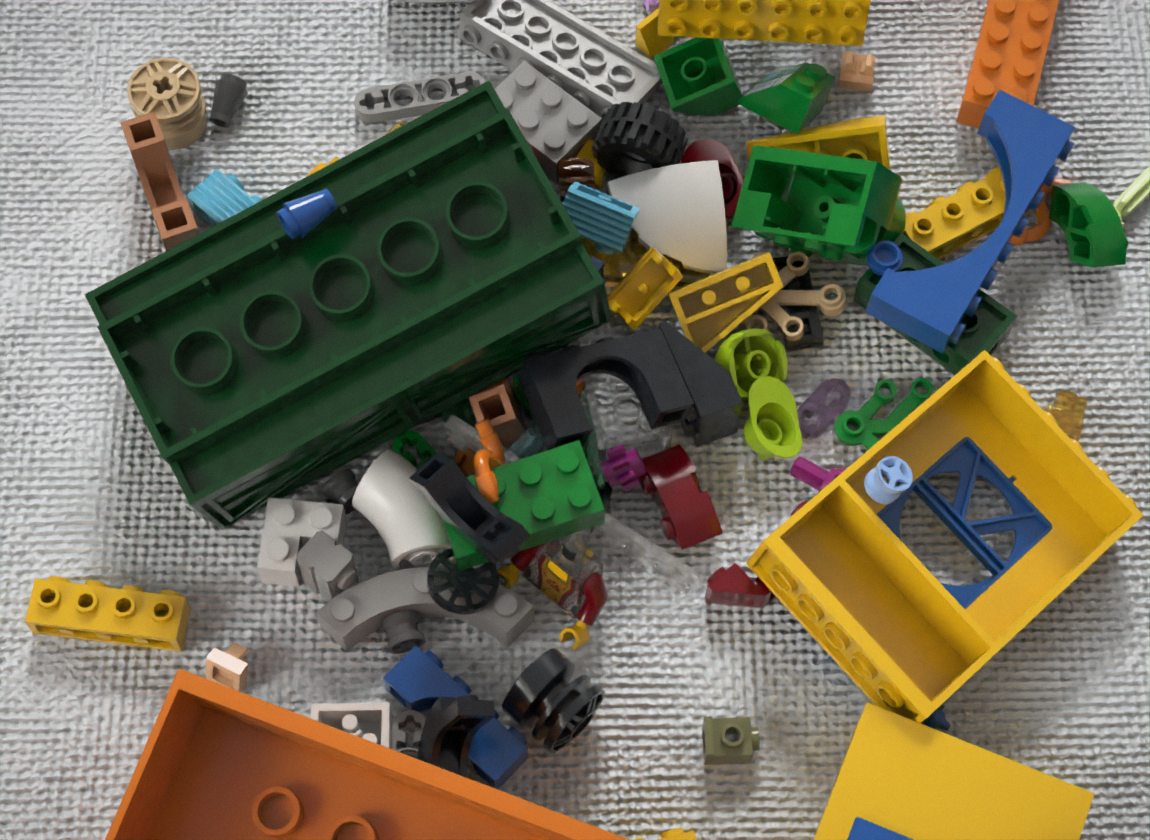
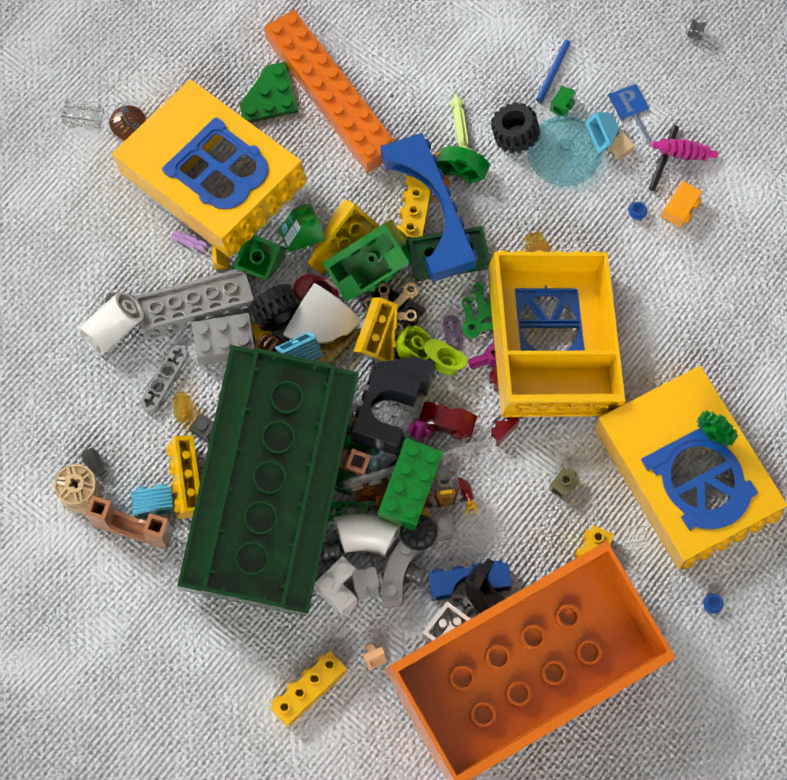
camera: 50 degrees left, 5 degrees up
(305, 213) = (231, 466): blue cone -> none
(467, 511) = (408, 504): black arch -> none
(486, 459) = (397, 487): orange animal -> none
(546, 694) = (494, 537): black wheel -> none
(644, 287) = (344, 354): yellow hinge -> none
(857, 71) = (310, 192): light nougat tile -> none
(883, 256) = (417, 254): blue plate -> none
(897, 476) = (522, 334): light blue wheel -> none

